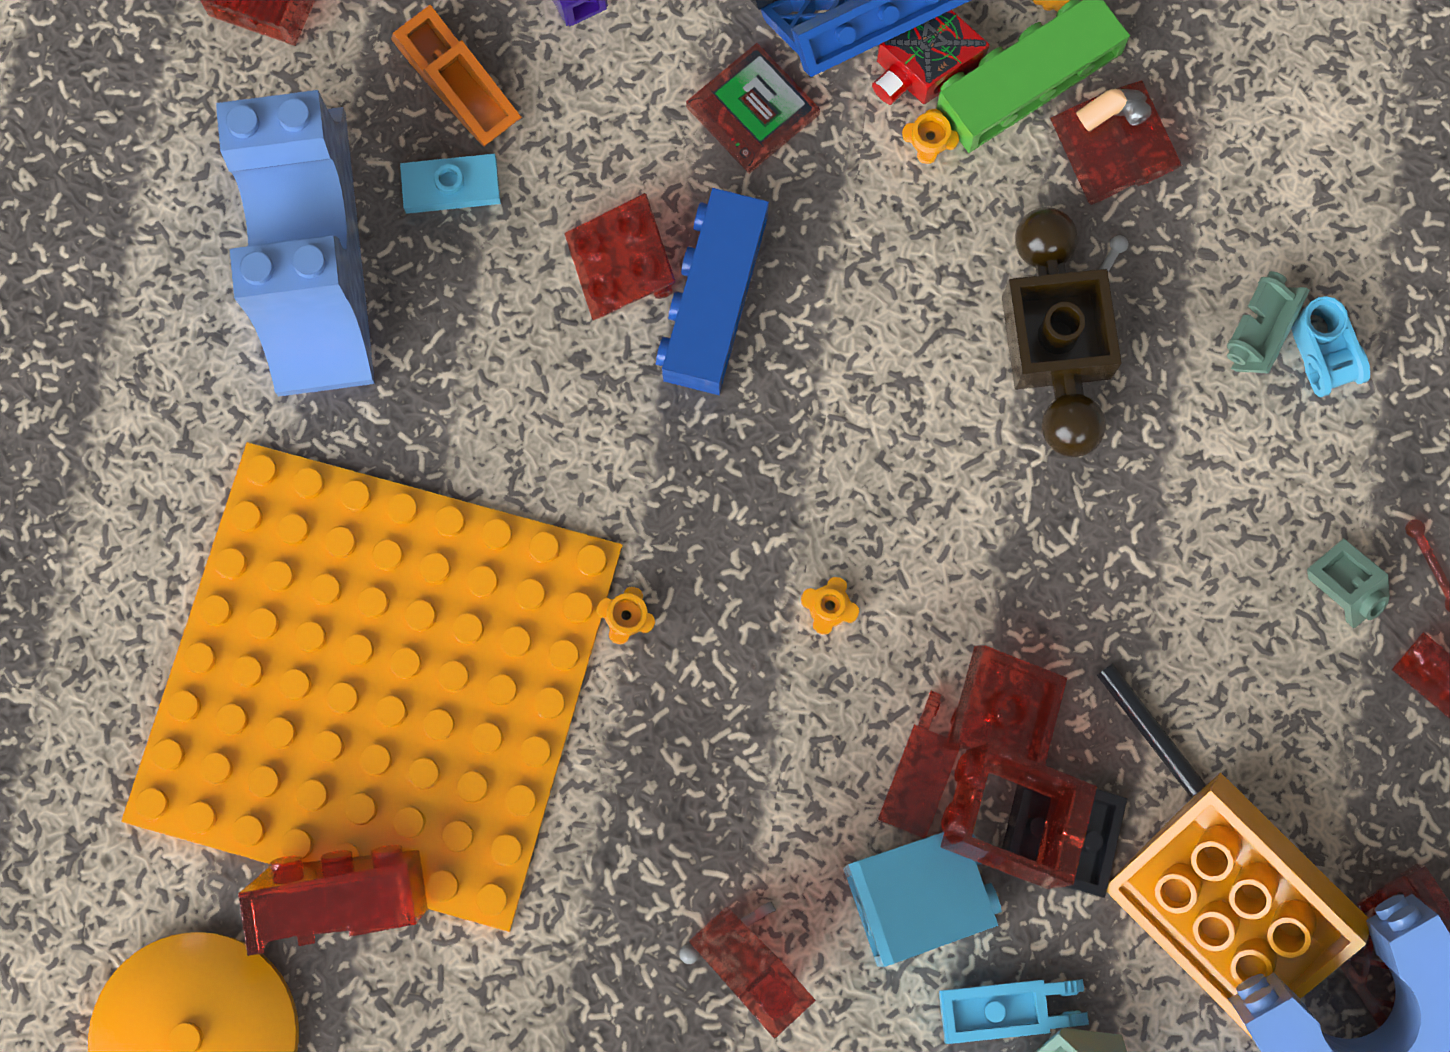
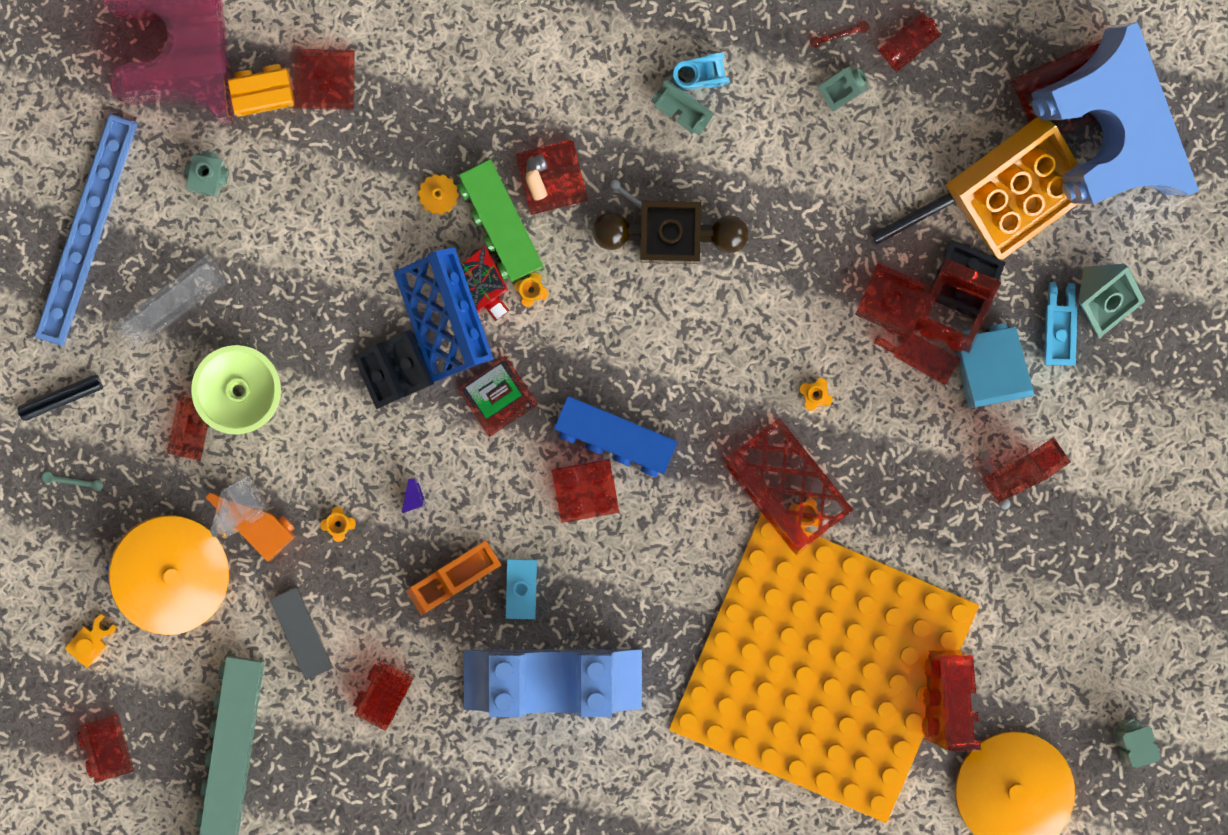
camera: 80 degrees left, 10 degrees up
(639, 545) = (769, 504): none -> clear red fence

